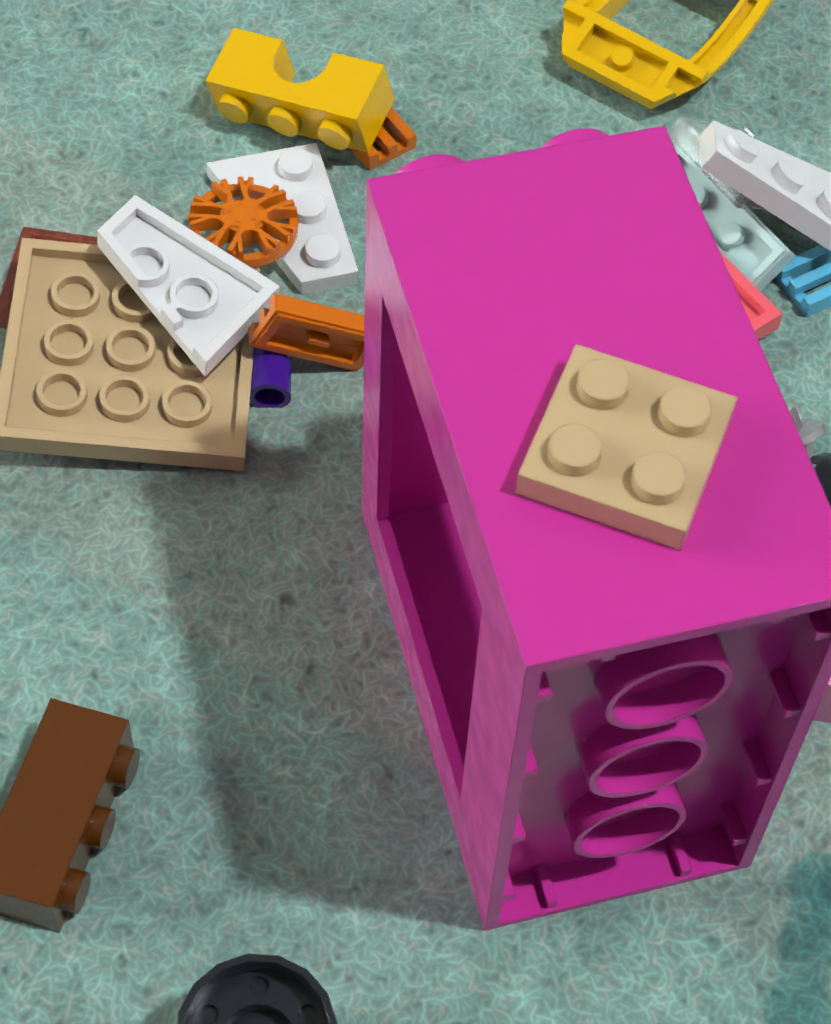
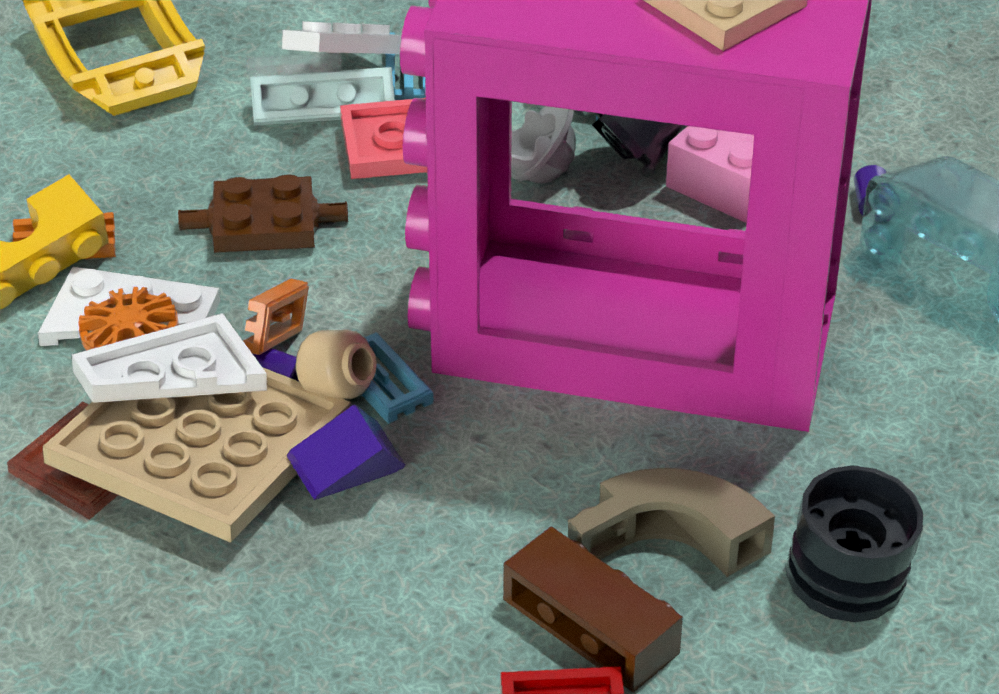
camera: 60 degrees left, 15 degrees down
(162, 491) = (344, 454): none -> dark purple slope
(255, 885) = (681, 507): none -> dark tan arch
(277, 417) = (336, 363): none -> tan head
(297, 509) = (399, 402): none -> medium azure tile

